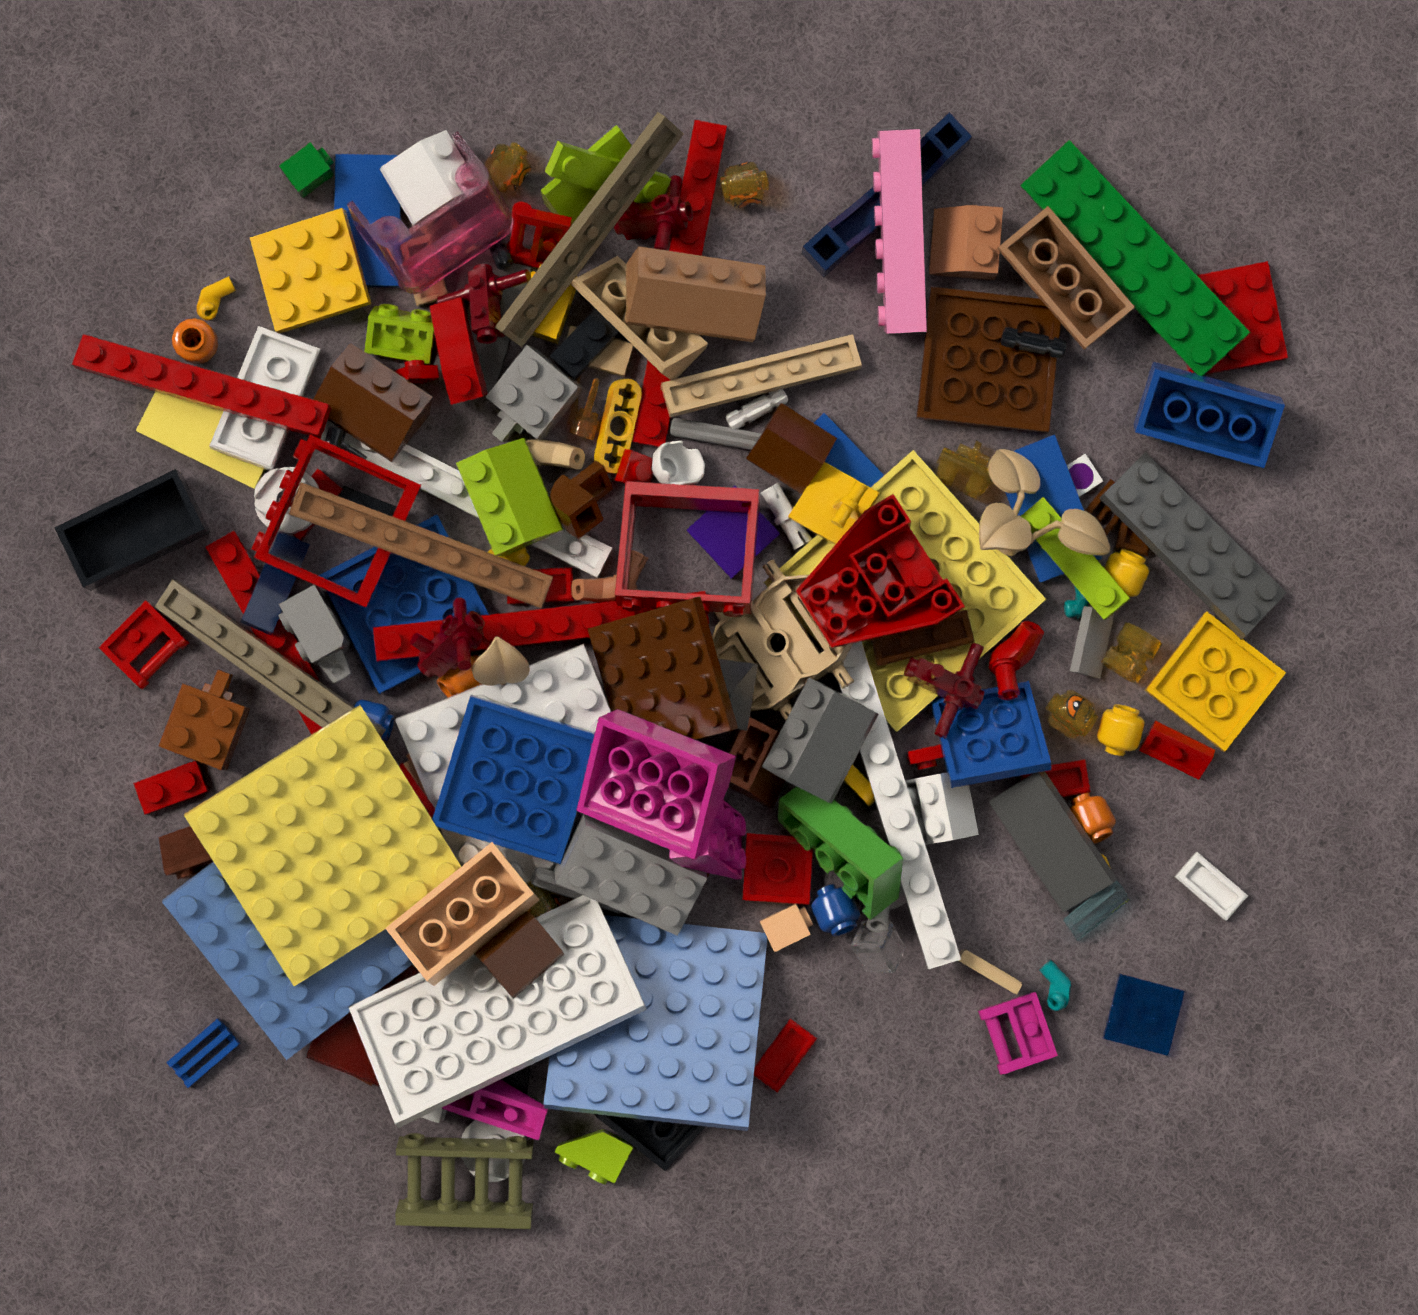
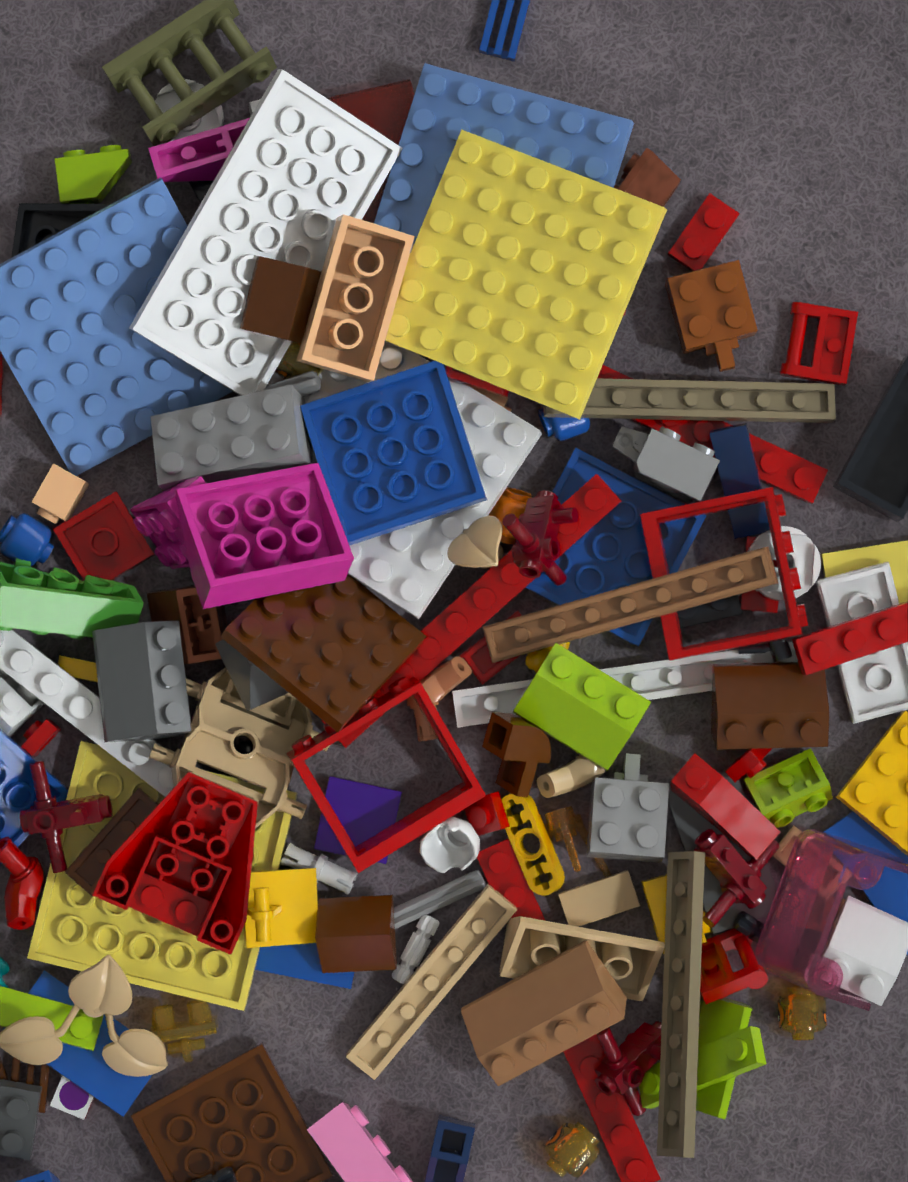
camera: 145 degrees right, 0 degrees up
(584, 344) = (614, 896): black plate -> none

